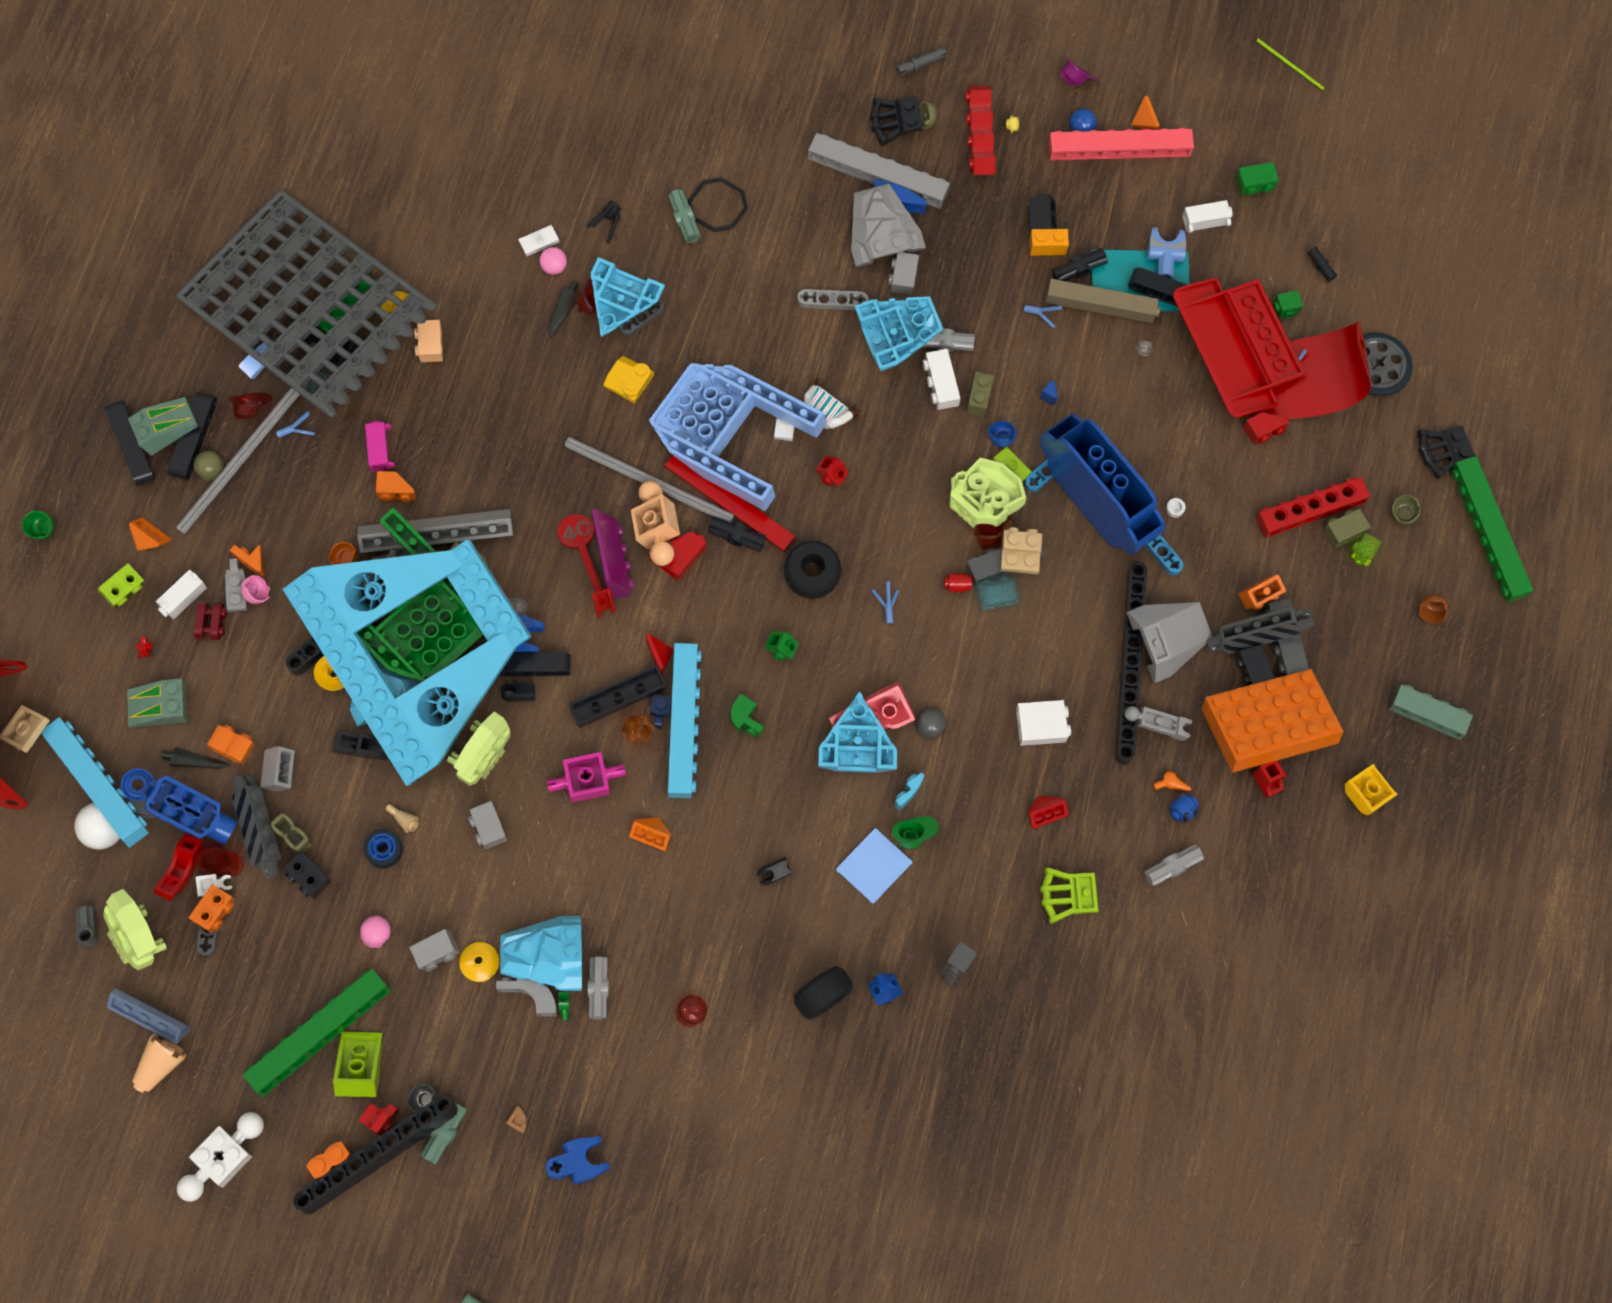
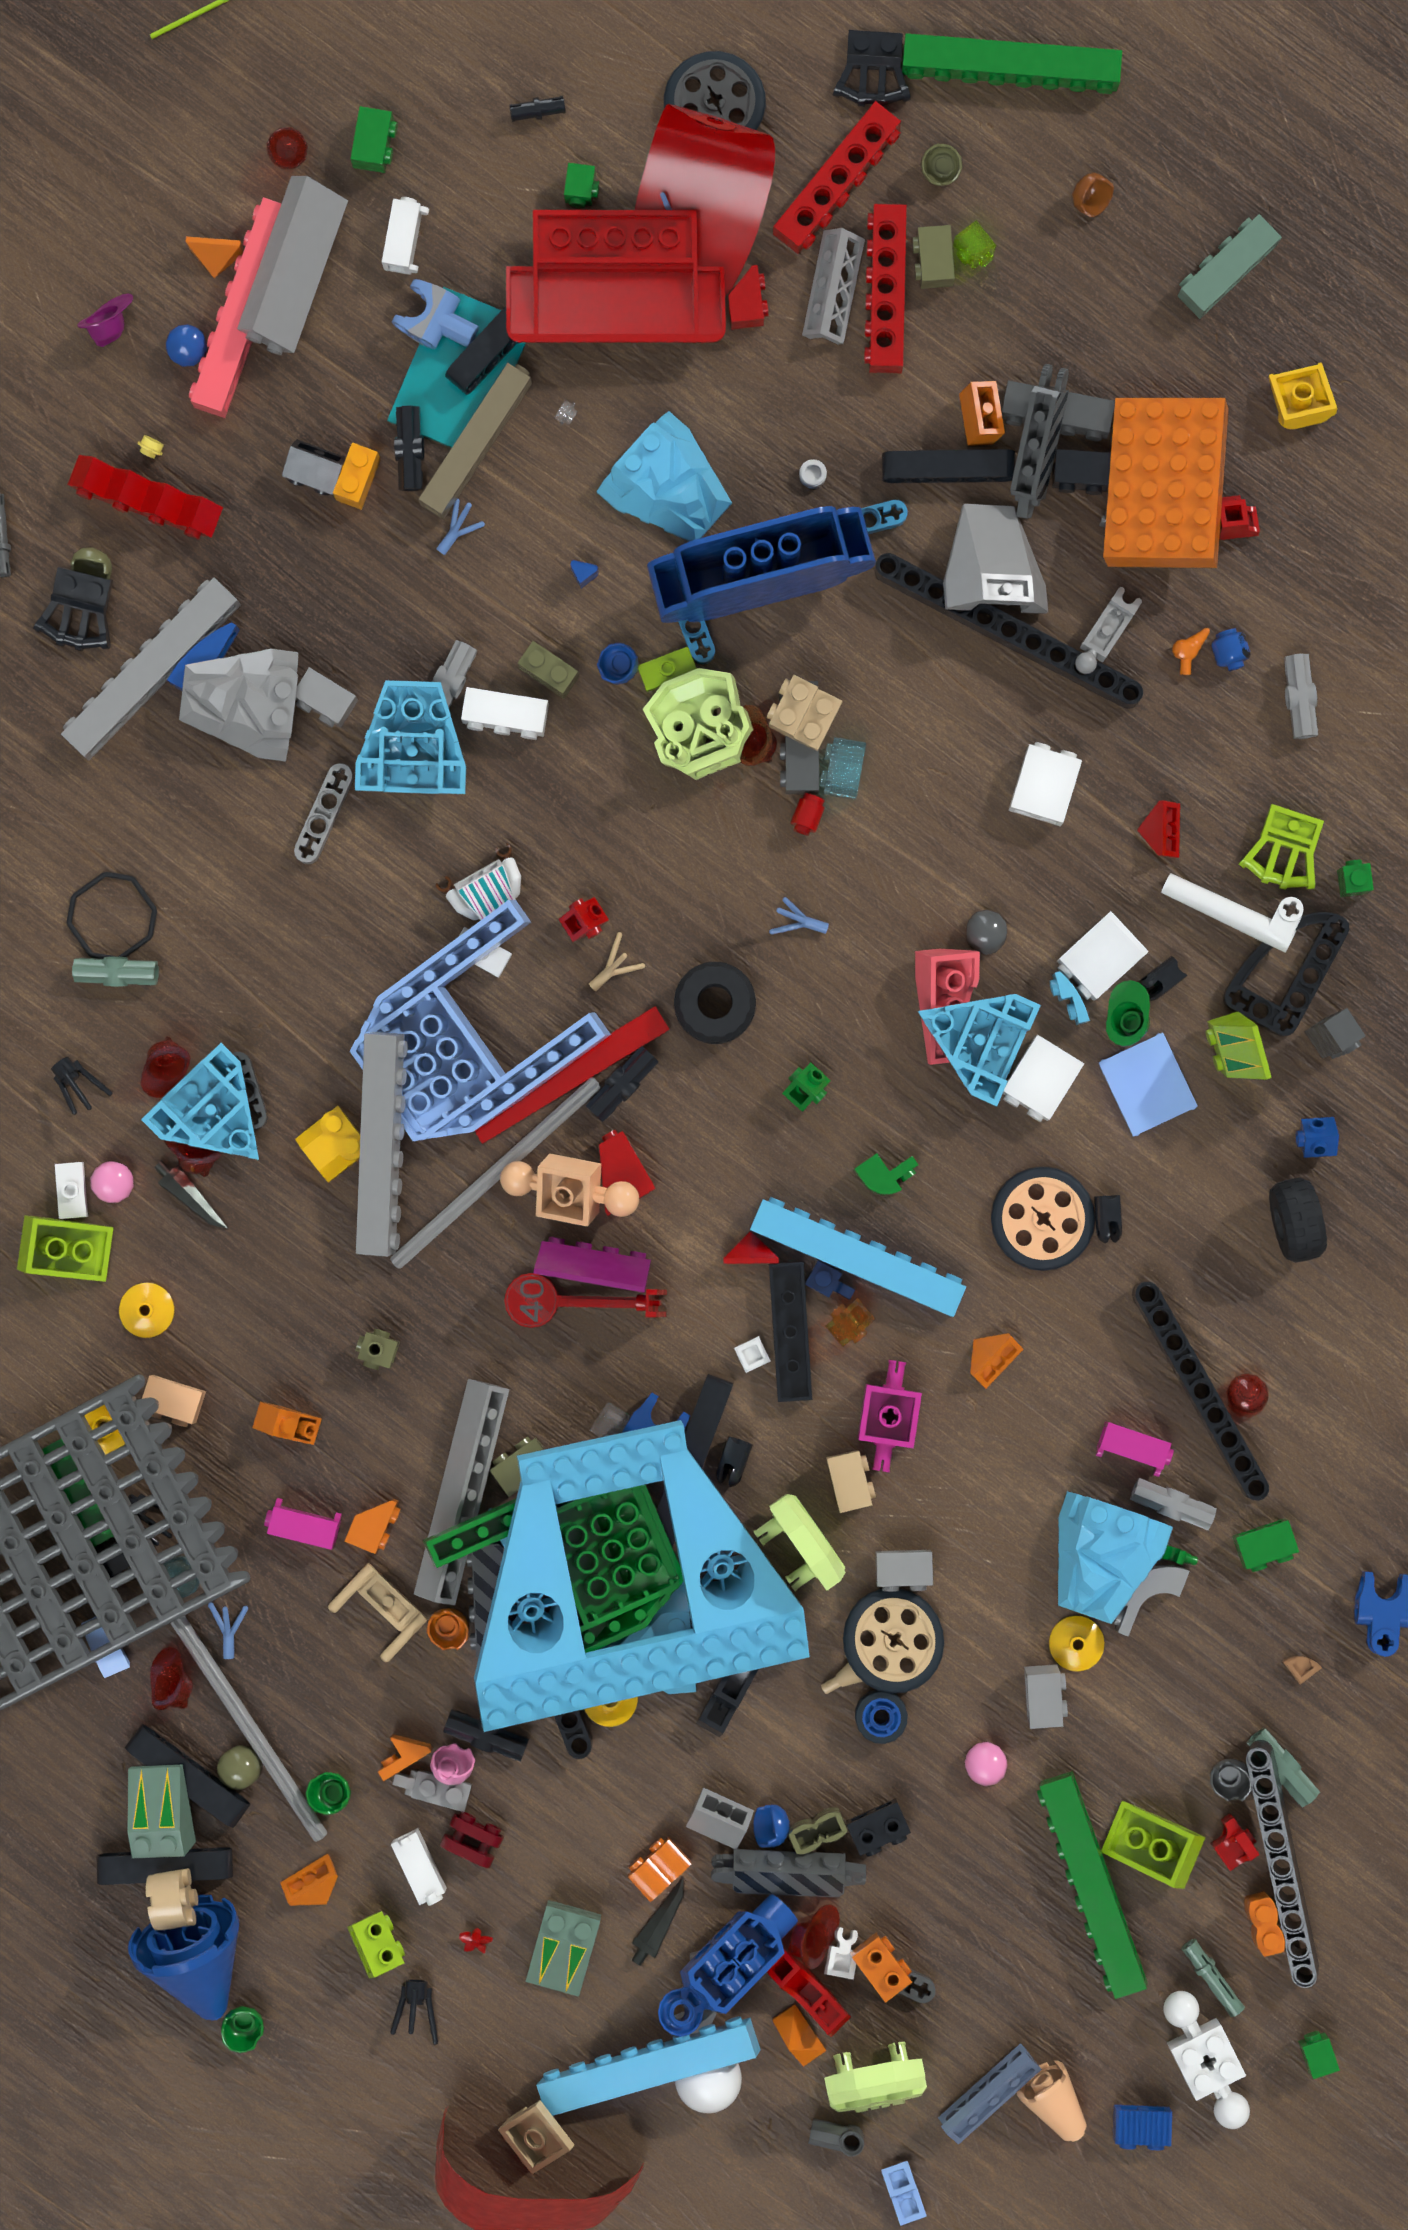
camera: 60 degrees left, 15 degrees up
(61, 988) = (904, 2193): none -> light blue slope
(75, 474) = (192, 1960): none -> blue cone
(95, 622) = (415, 1992): none -> black plant
(108, 446) = (171, 1899): none -> tan brick
(147, 877) = (798, 2035): none -> orange slope
(159, 1131) = (1142, 2126): none -> blue brick
(209, 522) = (328, 1793): none -> green hair
(249, 1234) = (1318, 2054): none -> green brick
(281, 606) = (498, 1740): none -> black piece
(284, 804) = (771, 1826): none -> blue hair
(285, 1132) = (1206, 1969): none -> sand green pin
(347, 515) = (387, 1602): none -> tan plate
(418, 817) = (861, 1657): none -> wedge
(440, 413) = (286, 1423): none -> orange slope
(484, 316) = (160, 1312): none -> yellow dish
(501, 248) = (64, 1248): none -> lime slope
(508, 449) = (387, 1352): none -> olive brick
(533, 769) = (849, 1480): none -> tan brick
(593, 679) = (752, 1354): none -> white tile
(594, 1061) = (1266, 1544): none -> green brick
(627, 947) = (1135, 1446): none -> dark pink brick
(636, 262) = (164, 1067): none -> clear red piece
(639, 400) = (380, 1144): none -> light grey brick
(679, 986) = (1210, 1400): none -> black beam
(767, 806) = (1069, 1245): none -> wedge
(804, 500) = (610, 969): none -> tan plant
(848, 793) = (1041, 1079): none -> white brick
(923, 907) = (1237, 1047): none -> lime slope
(944, 799) = (1101, 957): none -> white slope
(949, 847) = (1163, 978): none -> black piece
(981, 938) = (1298, 984): none -> black beam
(1010, 905) = (1274, 932): none -> white axle
(1069, 947) = (1355, 878): none -> green brick
(1132, 418) = (667, 481): none -> medium azure wedge
(1158, 158) = (292, 265): none -> light grey brick
(1218, 584) = (948, 466): none -> black beam
(1227, 133) = (287, 148): none -> clear red hair
(1299, 469) = (829, 282): none -> light grey fence
(1358, 443) = (875, 121): none -> red brick

